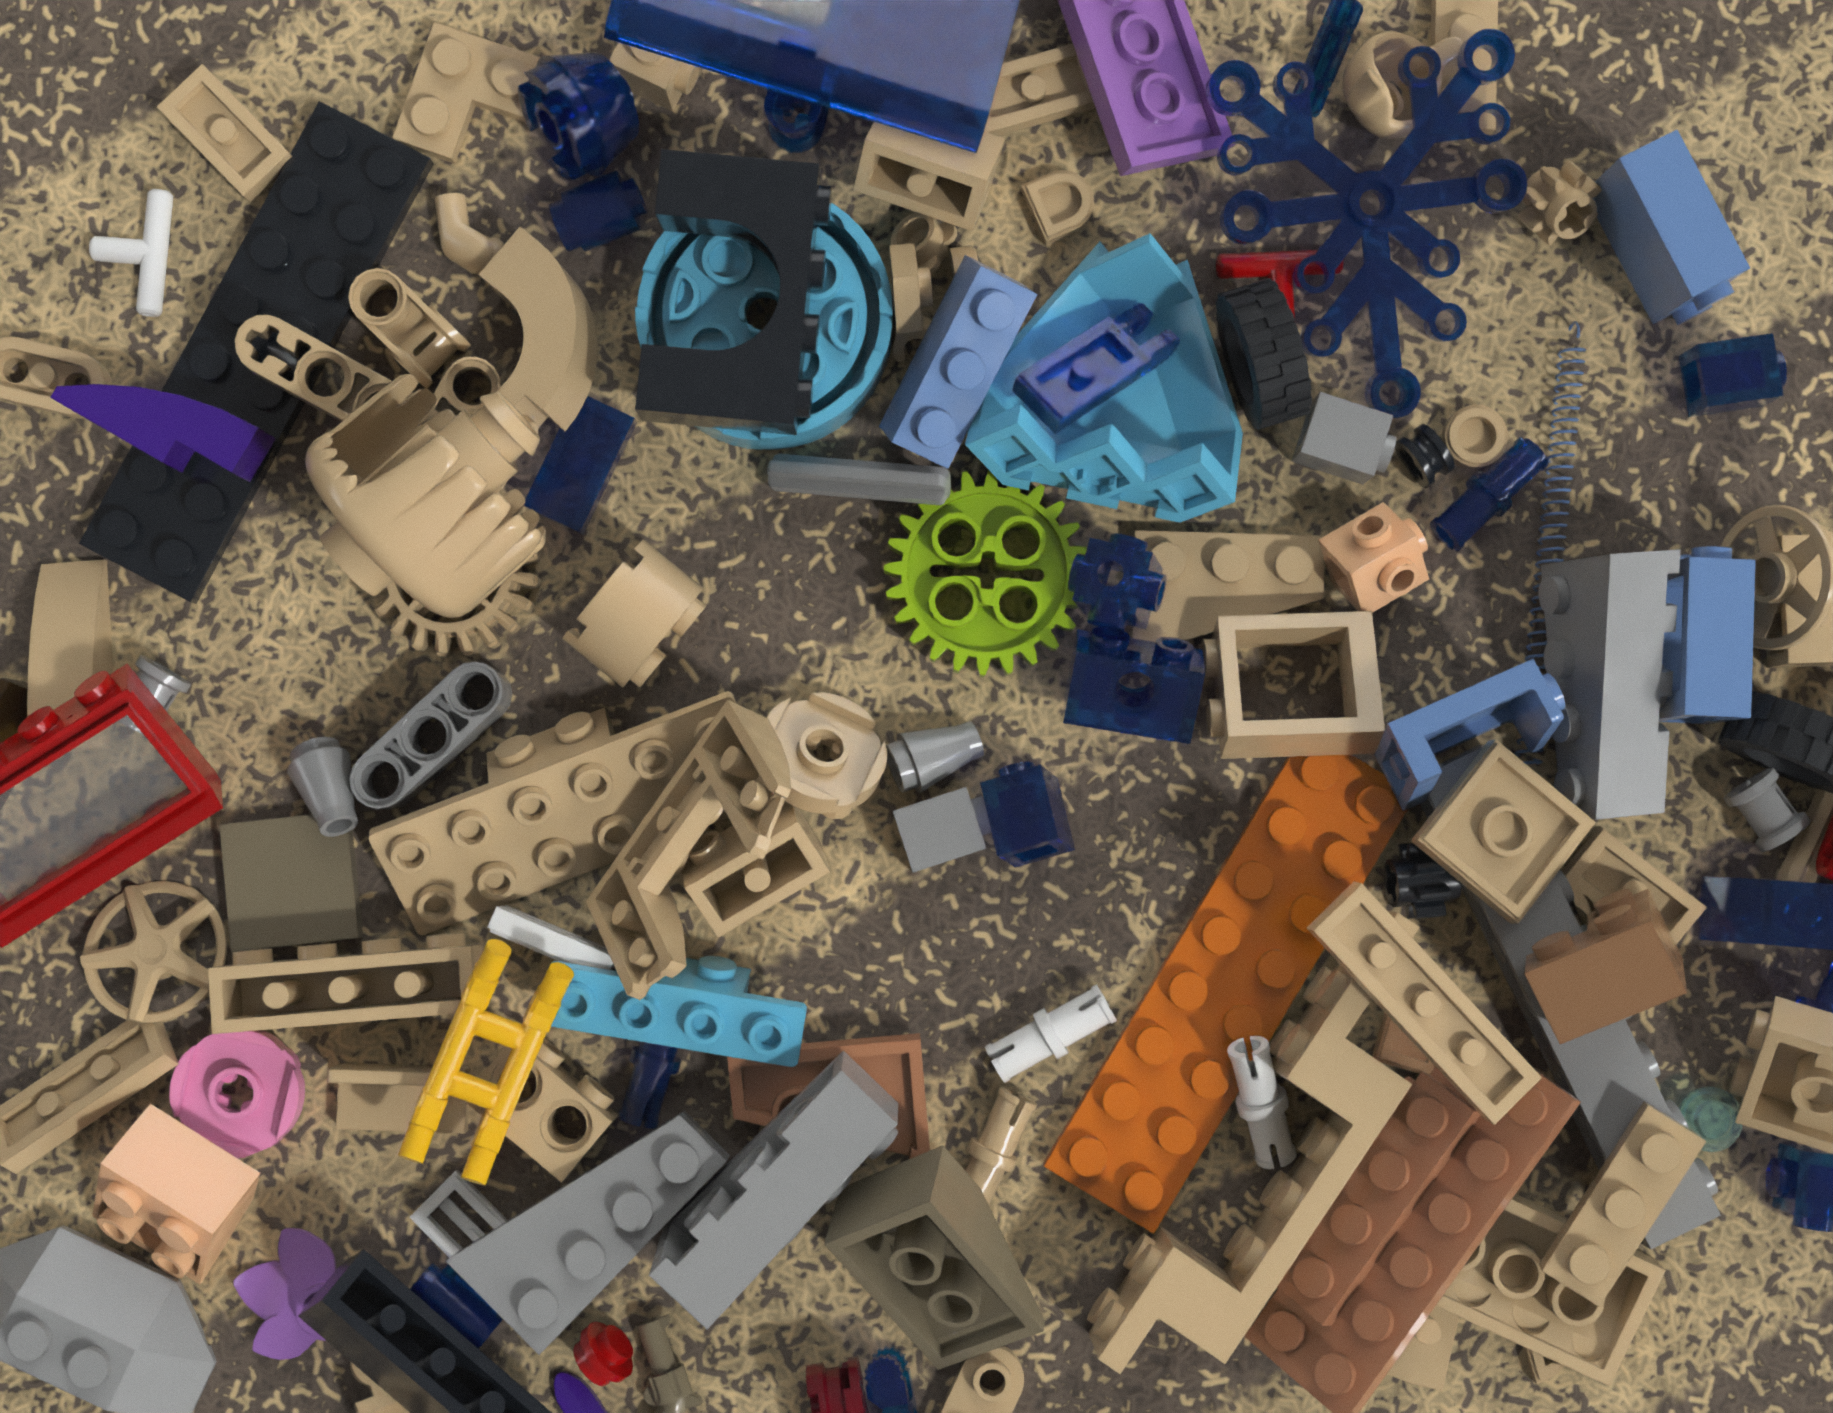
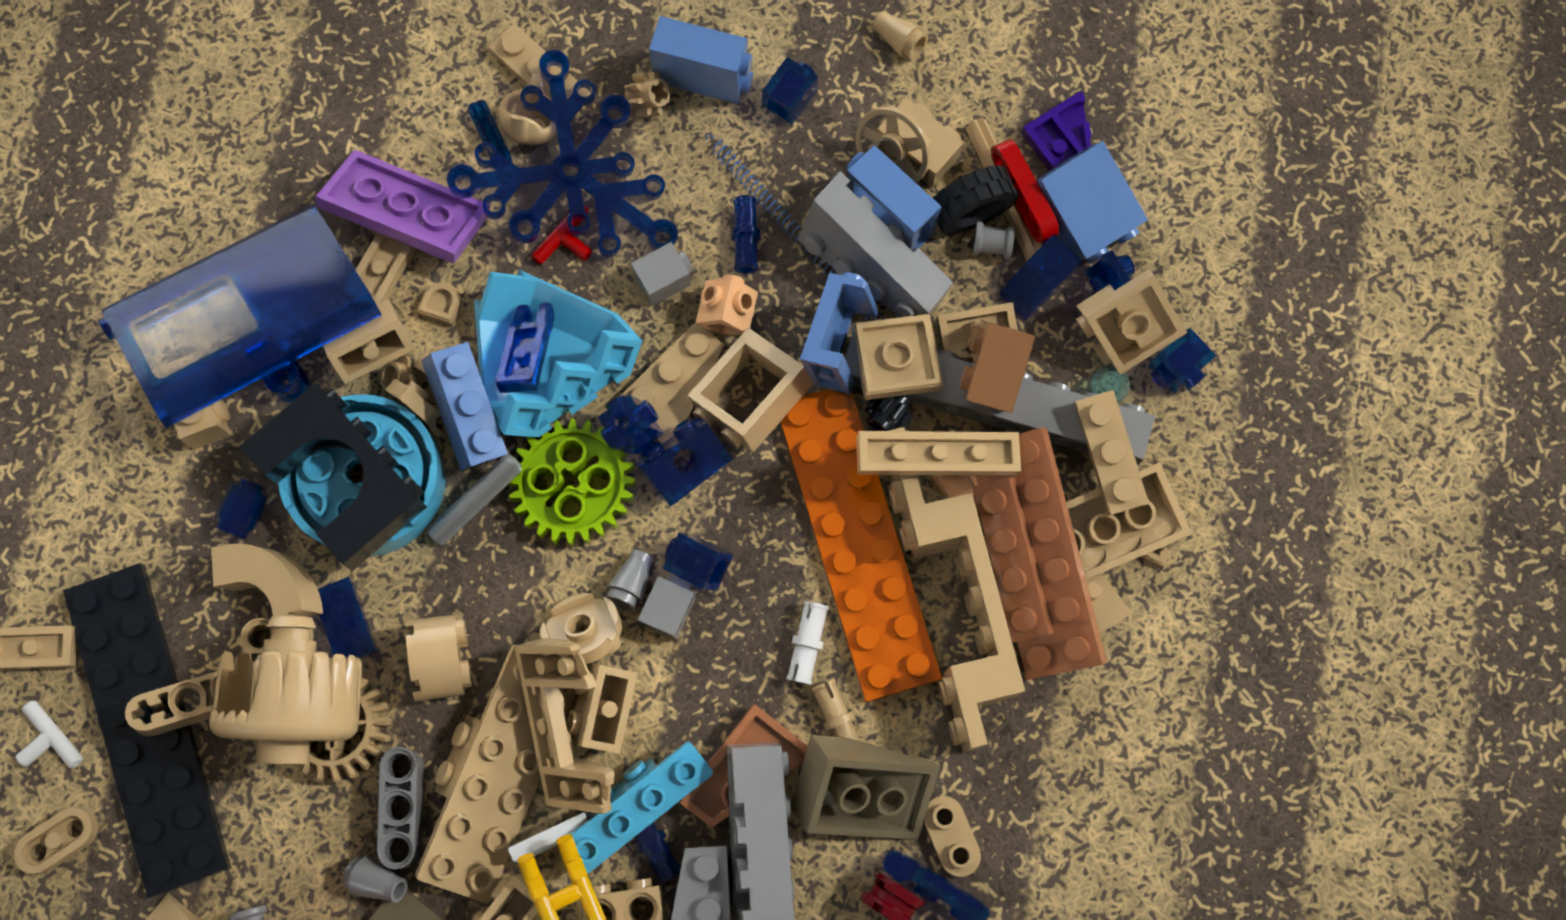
camera: 45 degrees left, 10 degrees down
(170, 426) = (136, 796): dark purple slope -> none
(413, 331) = (206, 642): tan piece -> none
(453, 79) = (117, 517): tan plate -> none
(460, 241) = (191, 584): tan arm -> none
(581, 110) = (187, 472): clear blue cone -> none
(1262, 1102) = (924, 573): white pin -> none
(1264, 353) = (590, 271): black tyre -> none
(1424, 455) = (702, 246): black bush -> none
(1475, 436) = (715, 219): tan tile -> none

